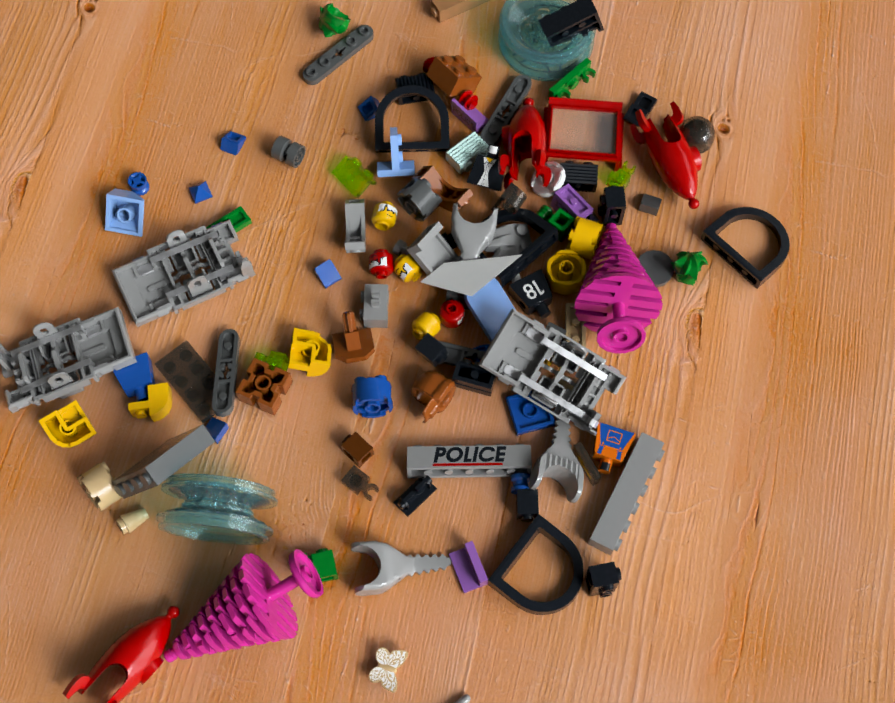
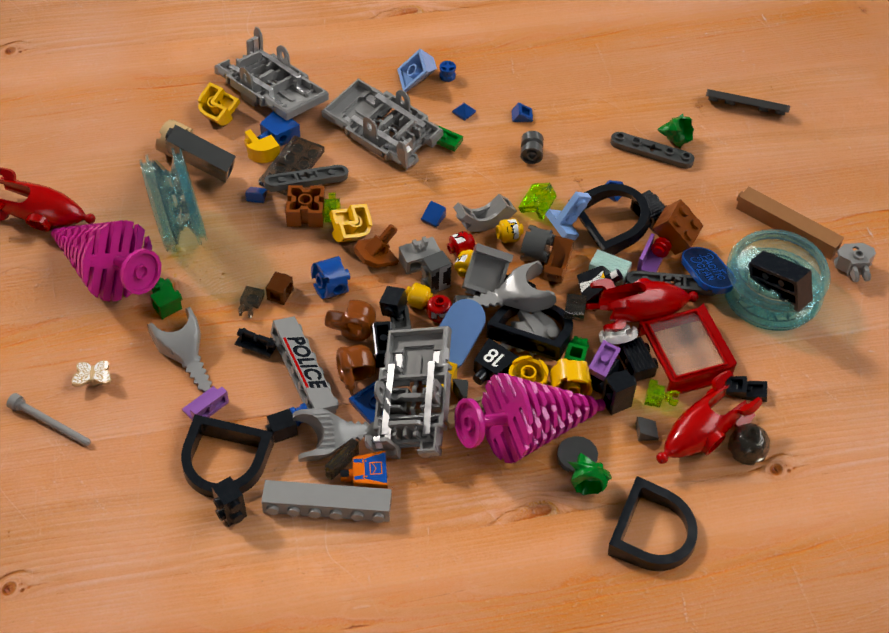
camera: 65 degrees right, 15 degrees down
(411, 298) = (436, 272): none -> dark grey brick
(469, 275) = (476, 296): white sticker -> none
(484, 414) = (355, 364): none -> dark orange piece
(509, 76) = (707, 269): none -> tile
(572, 79) = (739, 320): green plate -> none

